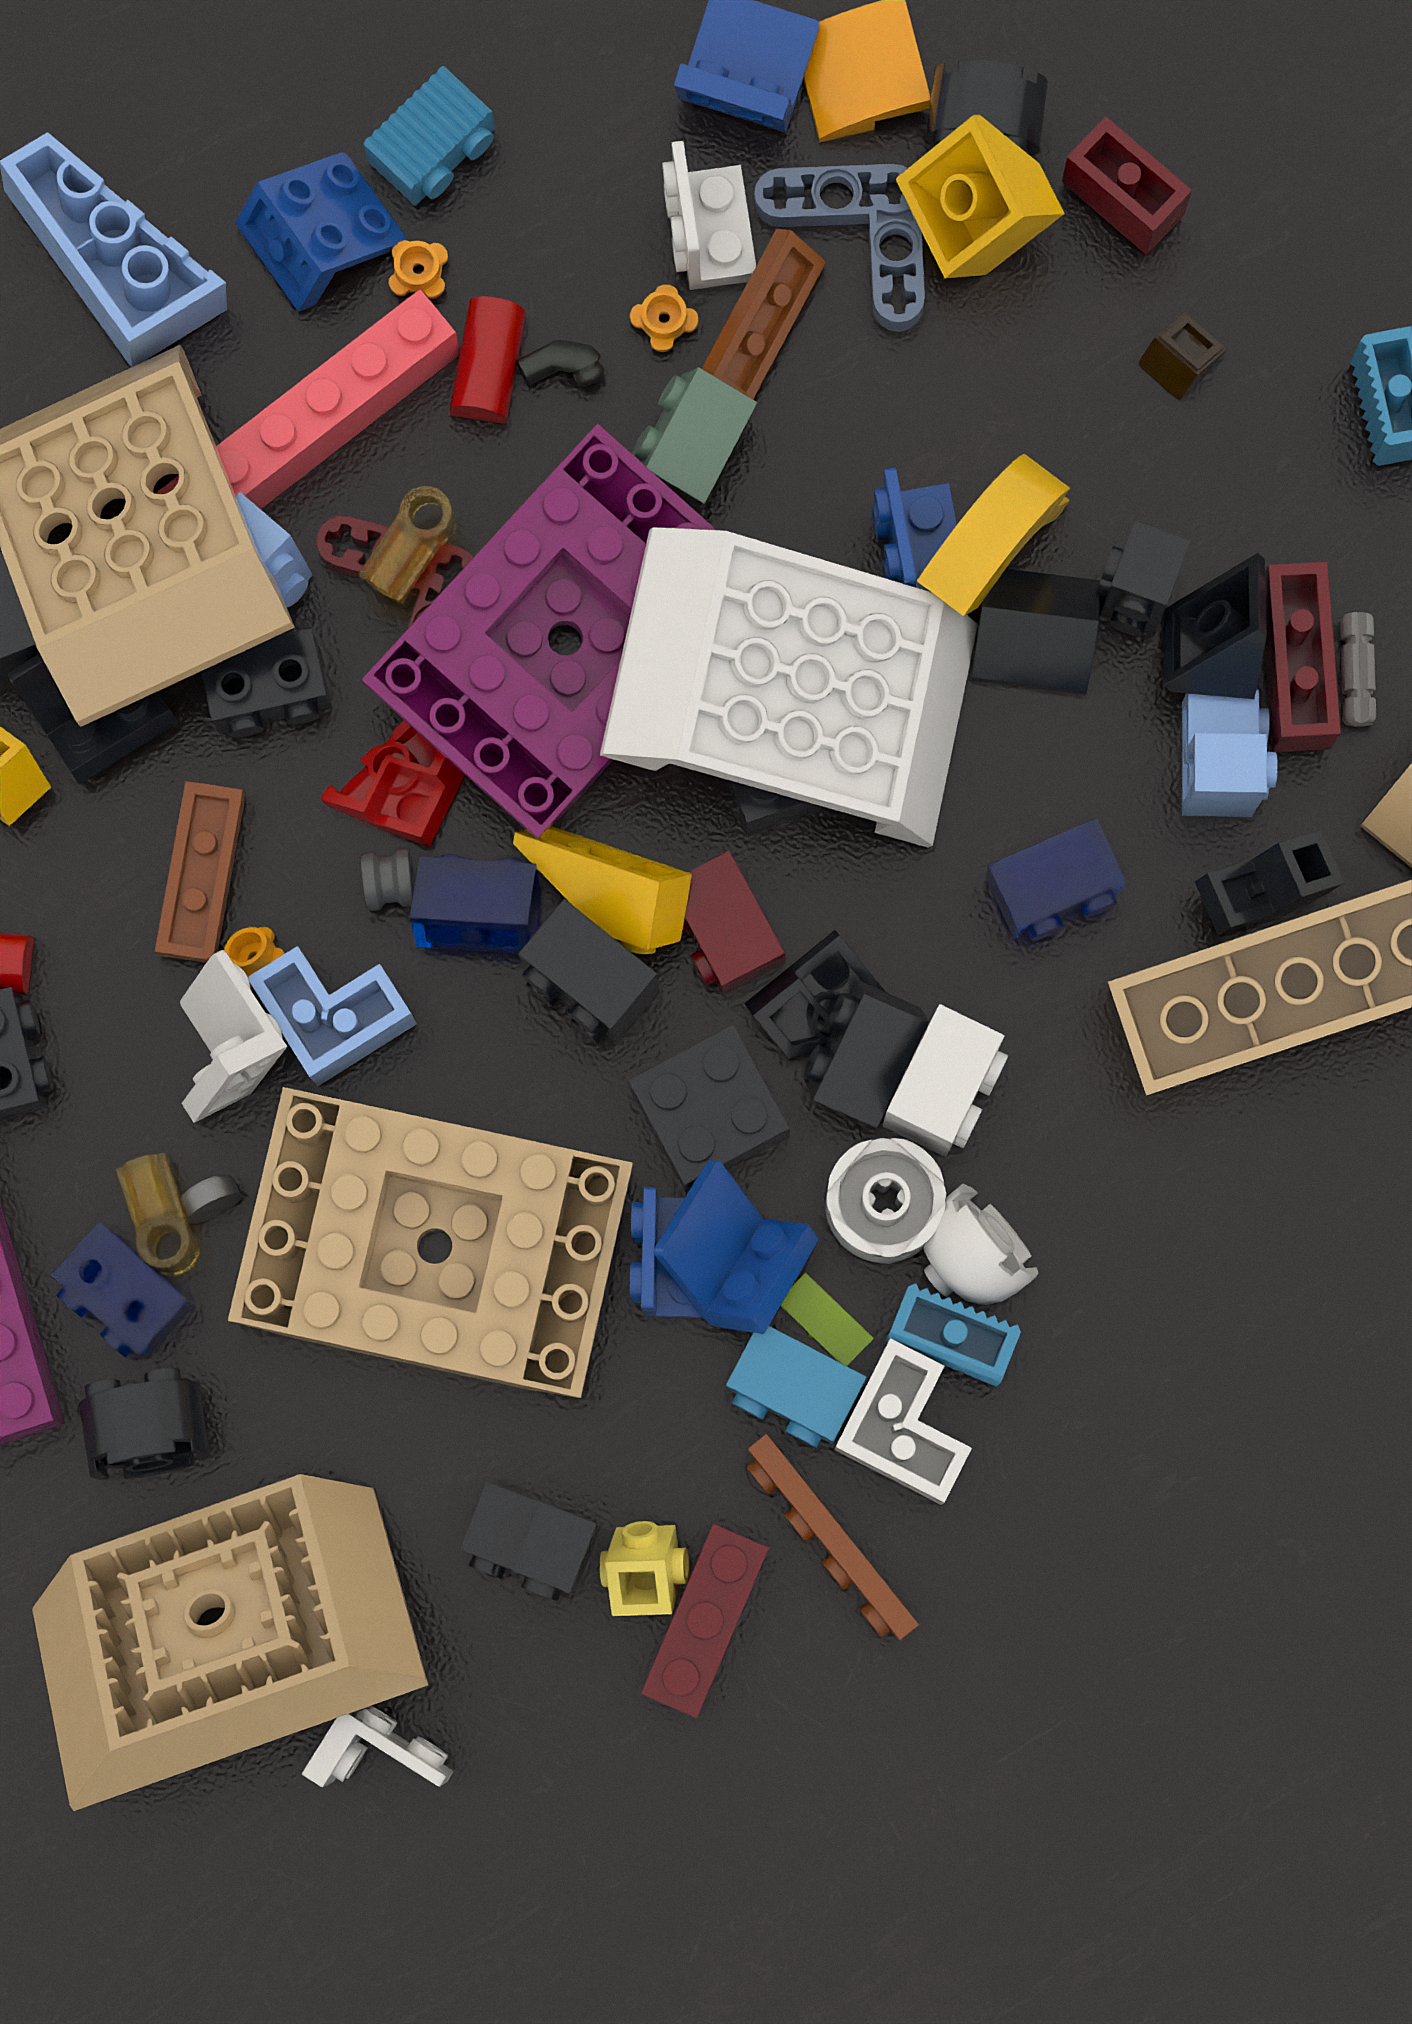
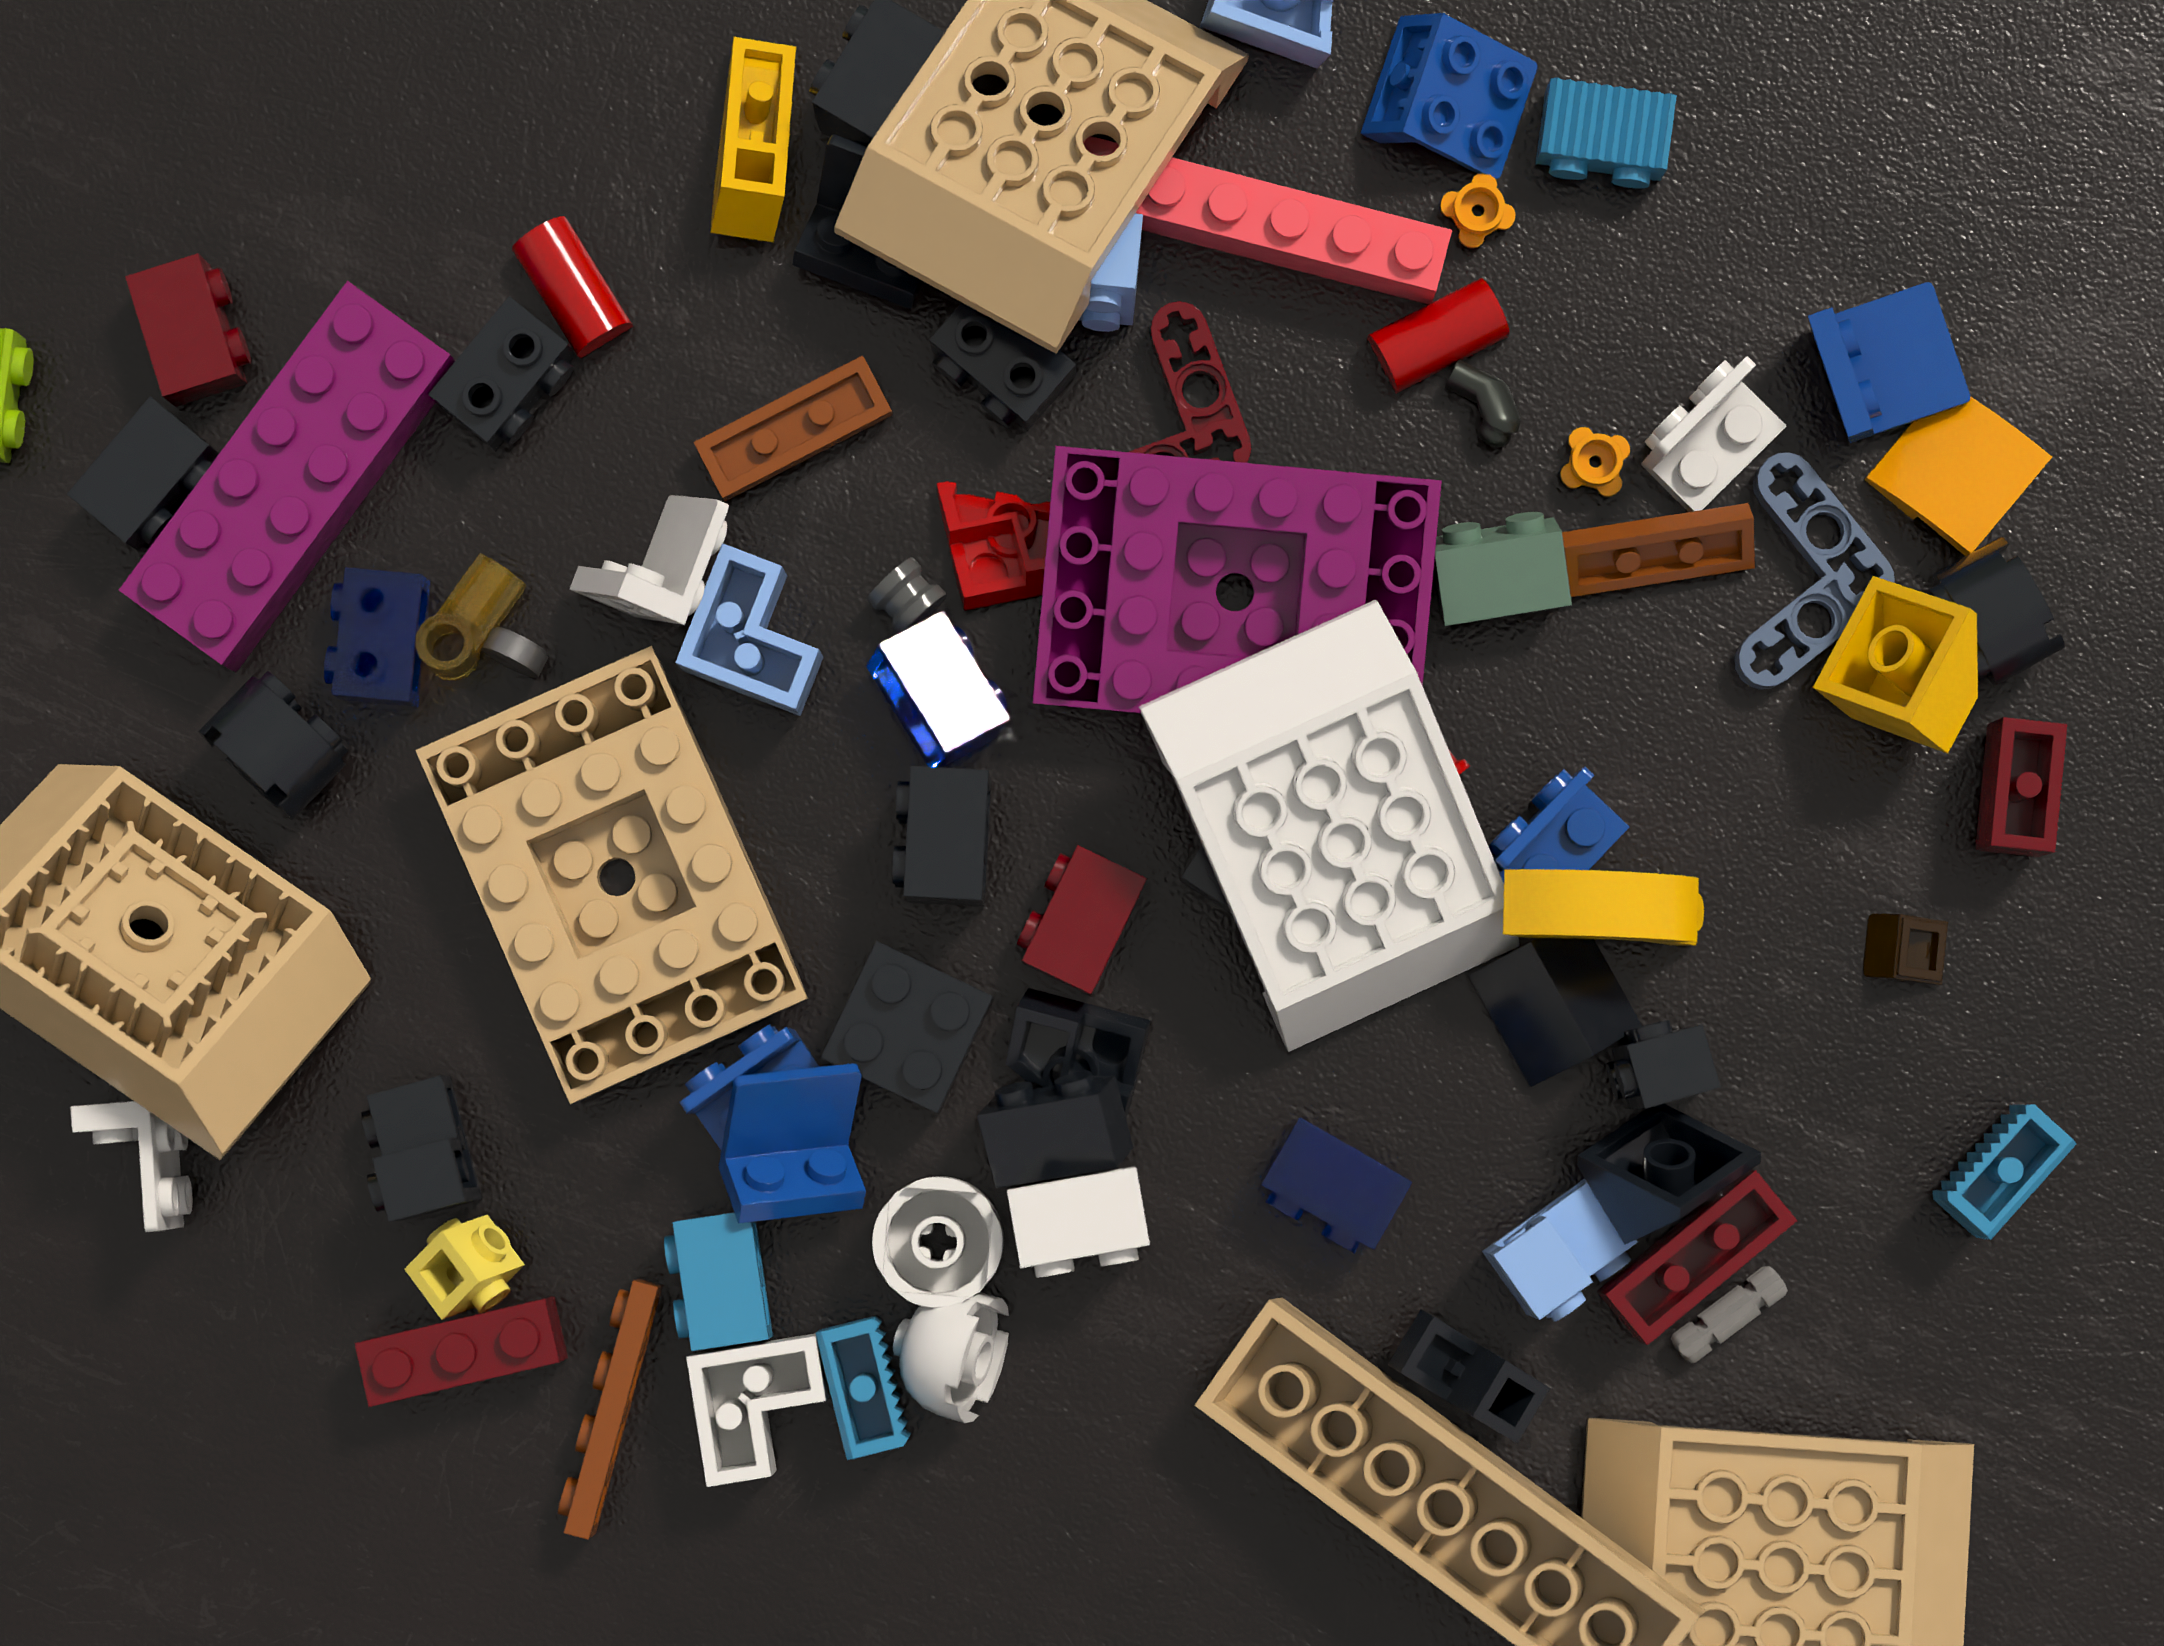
camera: 50 degrees right, 5 degrees up
(252, 949) = (760, 517): light orange plate -> none
(407, 549) = (1207, 394): clear yellow piece -> none
(617, 890) = (1038, 799): yellow slope -> none
(825, 1320) = (801, 1264): lime window -> none

